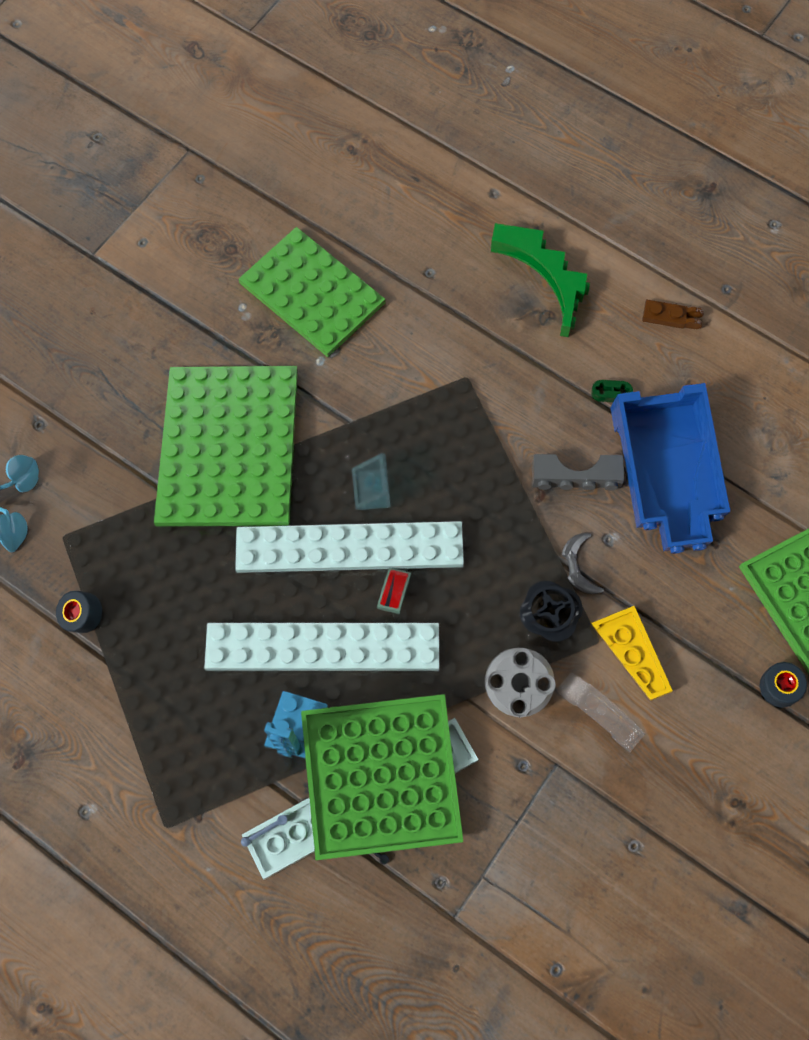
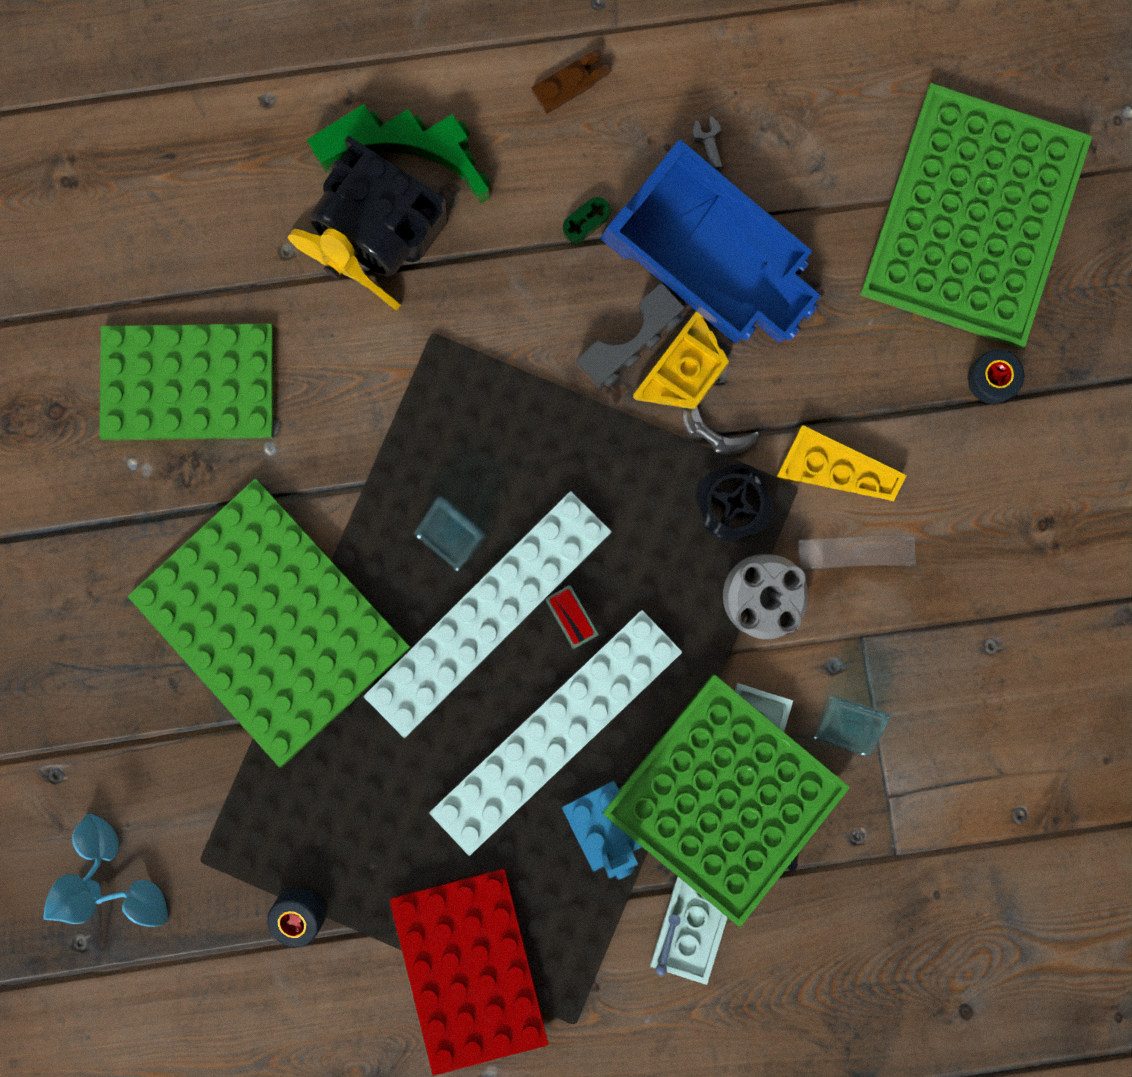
camera: 45 degrees left, 15 degrees up
(138, 735) = (468, 971): none -> red plate
(492, 289) = (372, 218): none -> black brick
(500, 807) = (850, 725): none -> clear light blue slope
(593, 516) = (686, 368): none -> yellow wing
(724, 409) = (708, 140): none -> light grey bar

